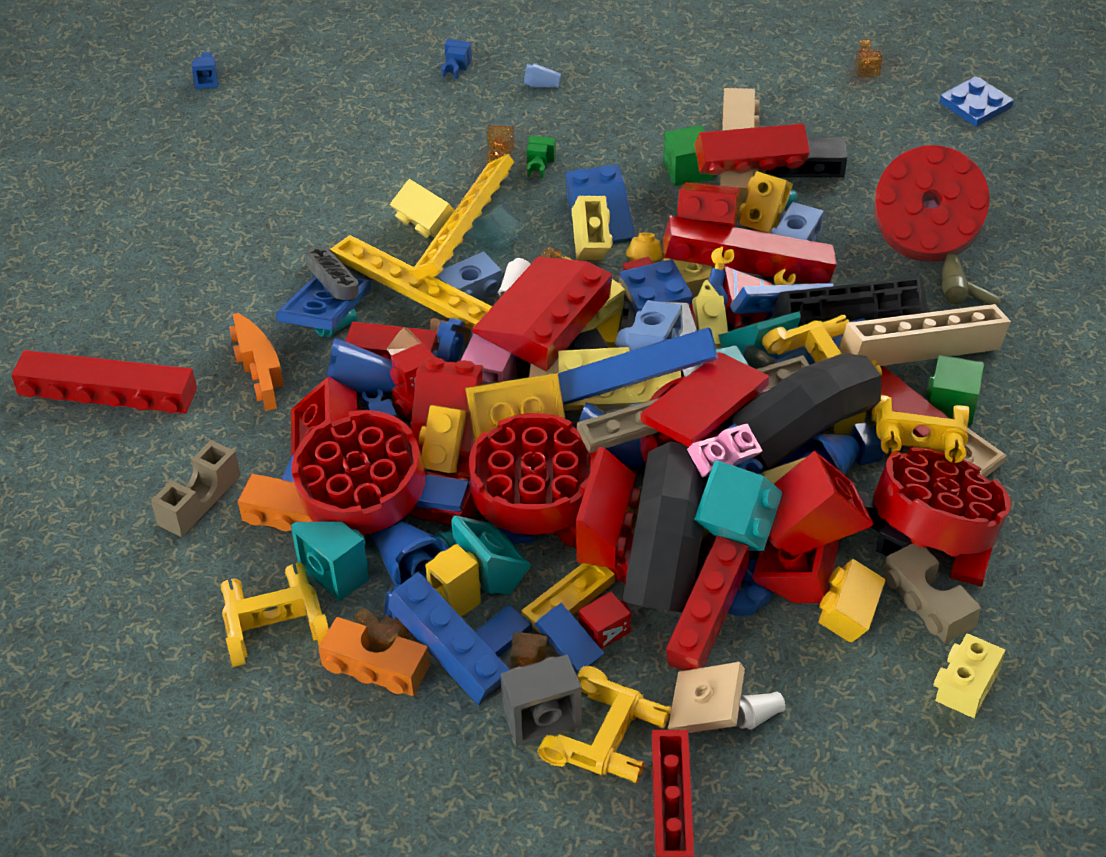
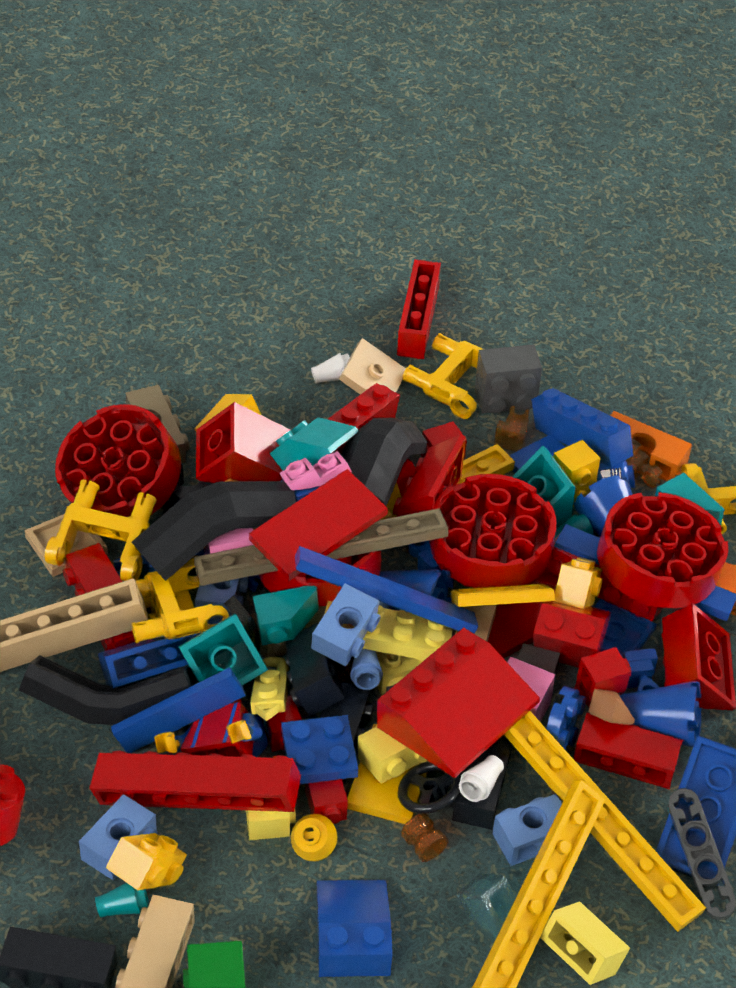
camera: 175 degrees left, 0 degrees up
(569, 637) = (480, 436): blue tile -> none
(591, 228) = (374, 860): light yellow brick -> none
(709, 203) = (228, 829): red slope -> none
(752, 148) = (138, 924): red brick -> none
(954, 384) = (37, 586): head -> none
(969, 675) = (155, 362): light yellow brick -> none

